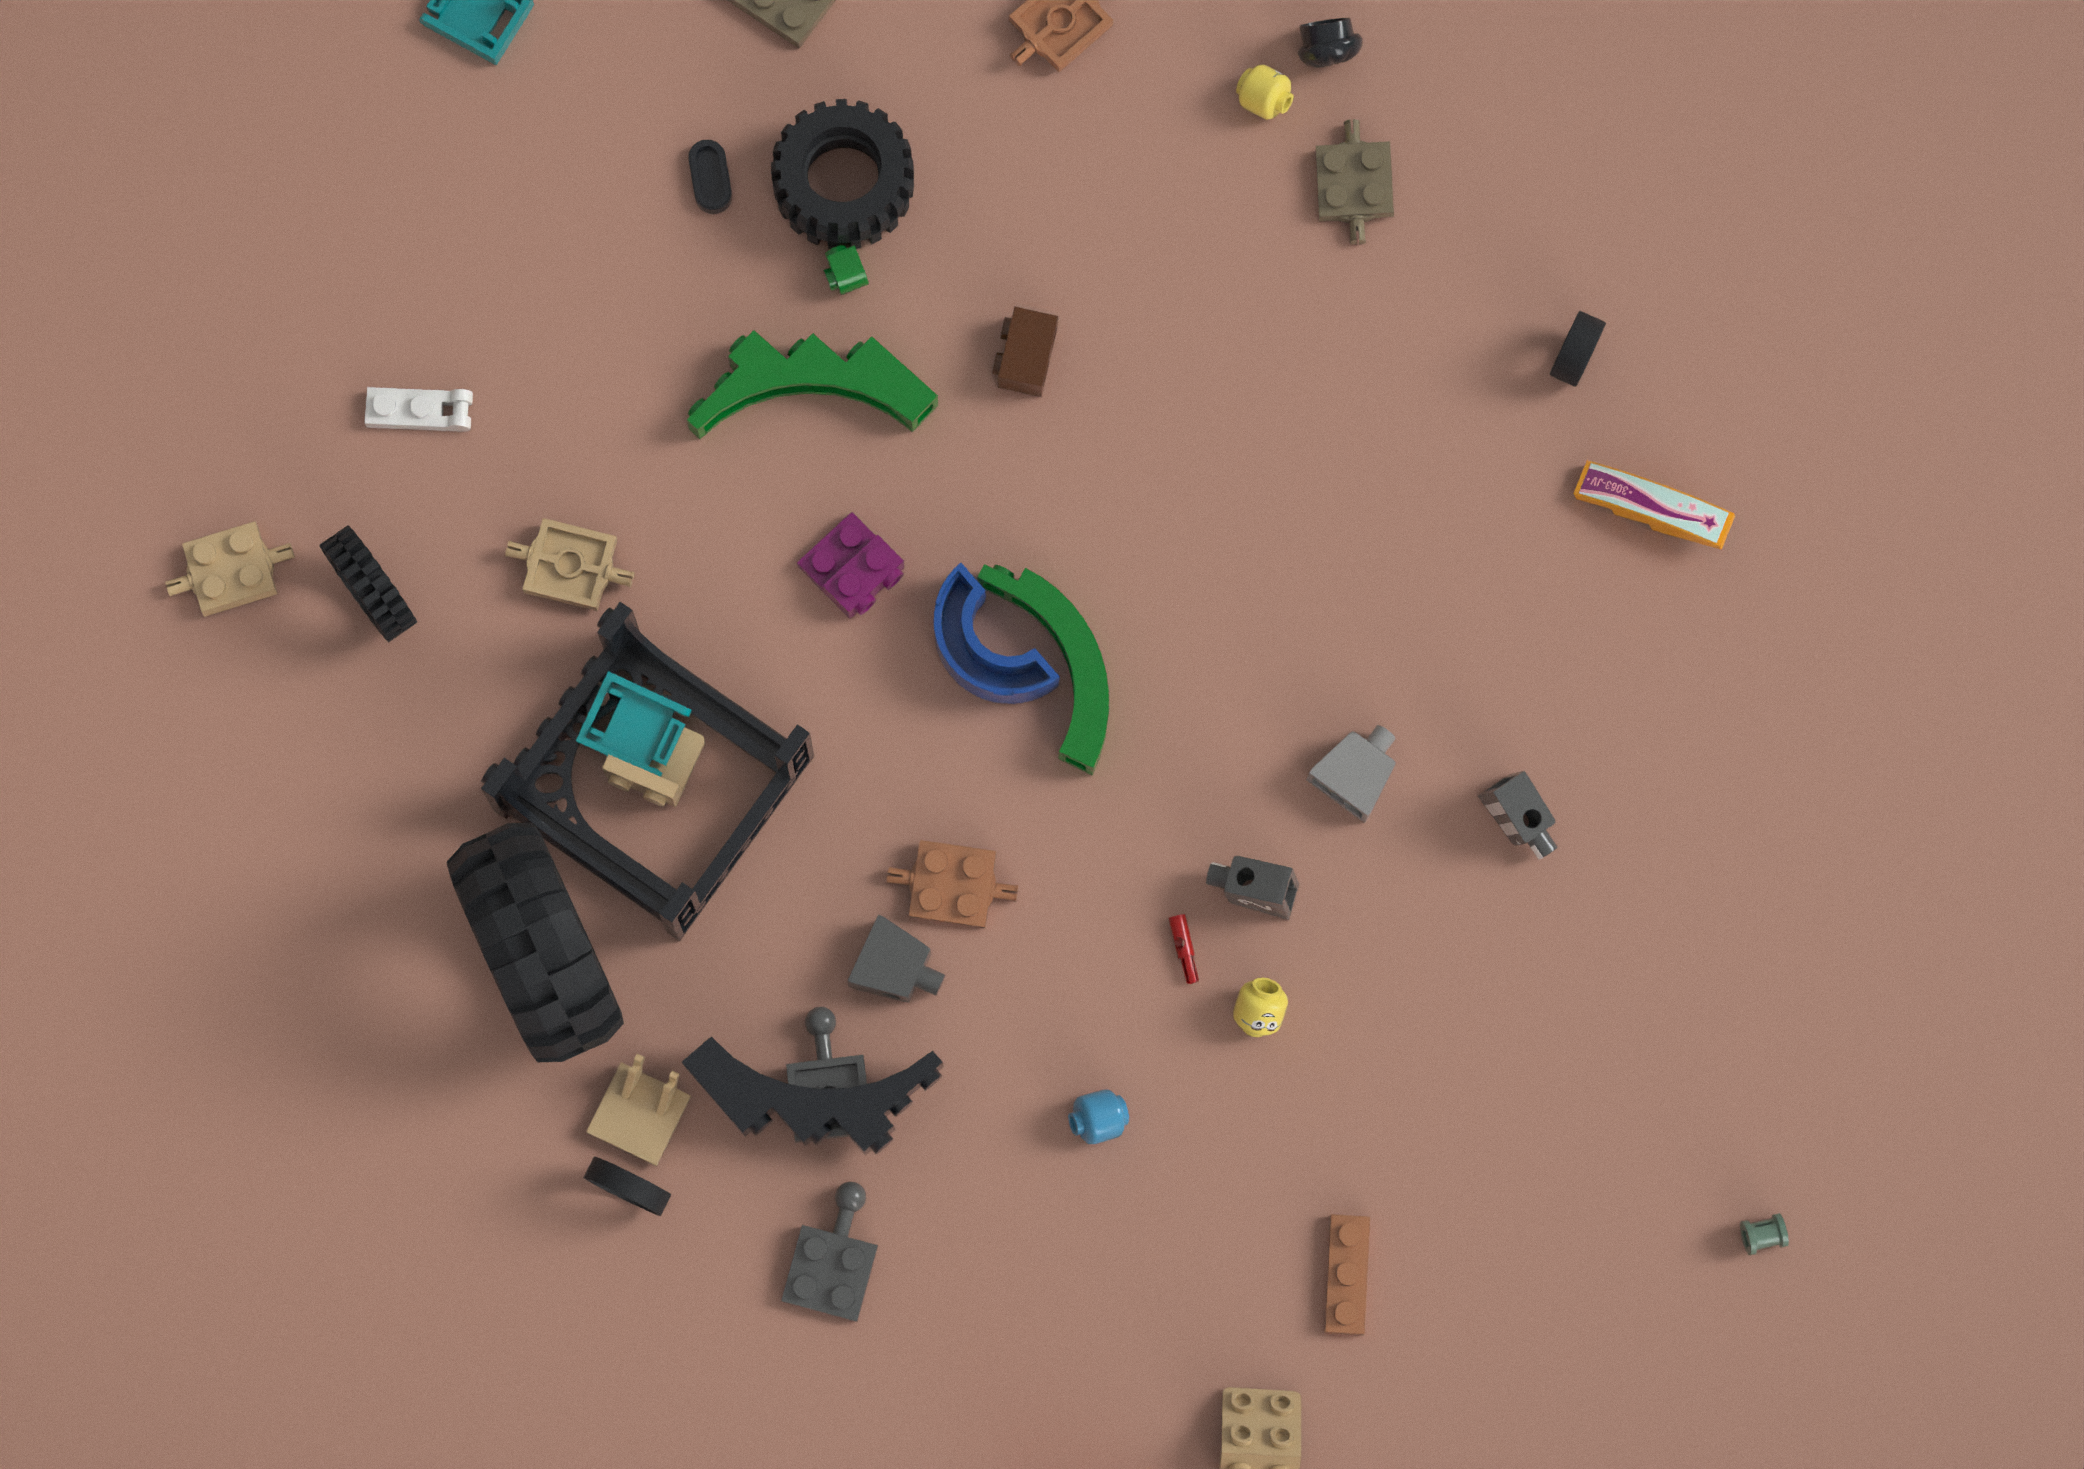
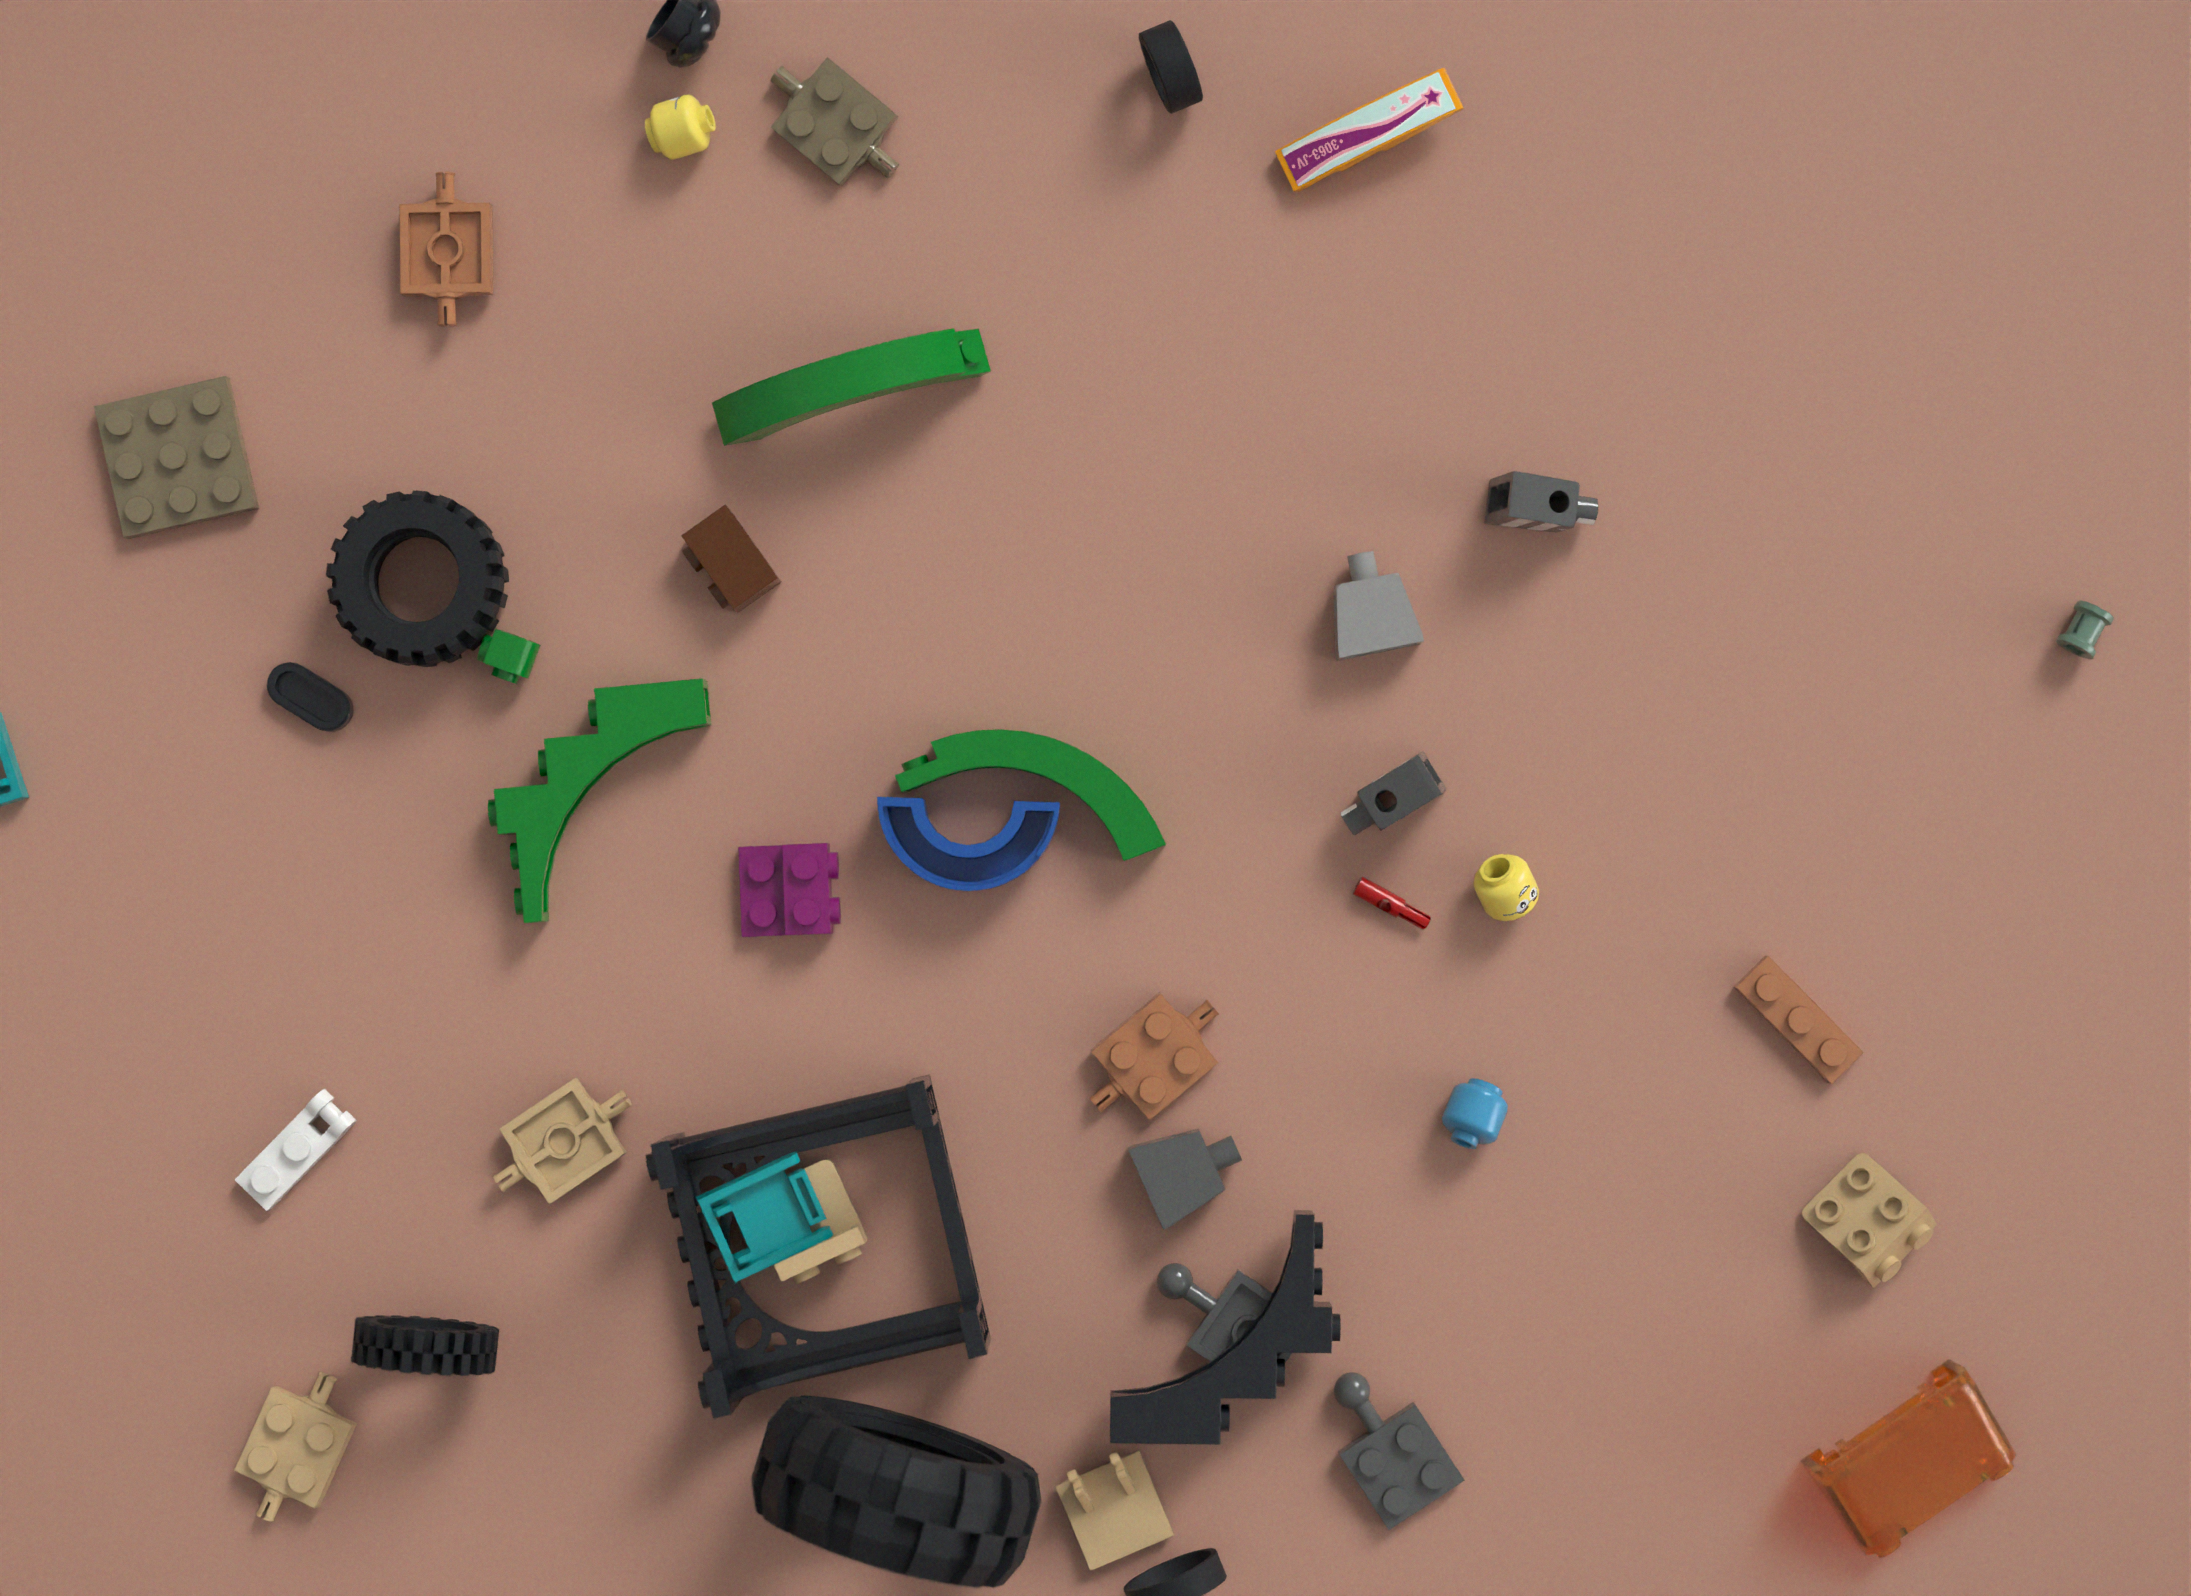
camera: 45 degrees left, 10 degrees up
(1207, 320) = (847, 380): none -> green arch

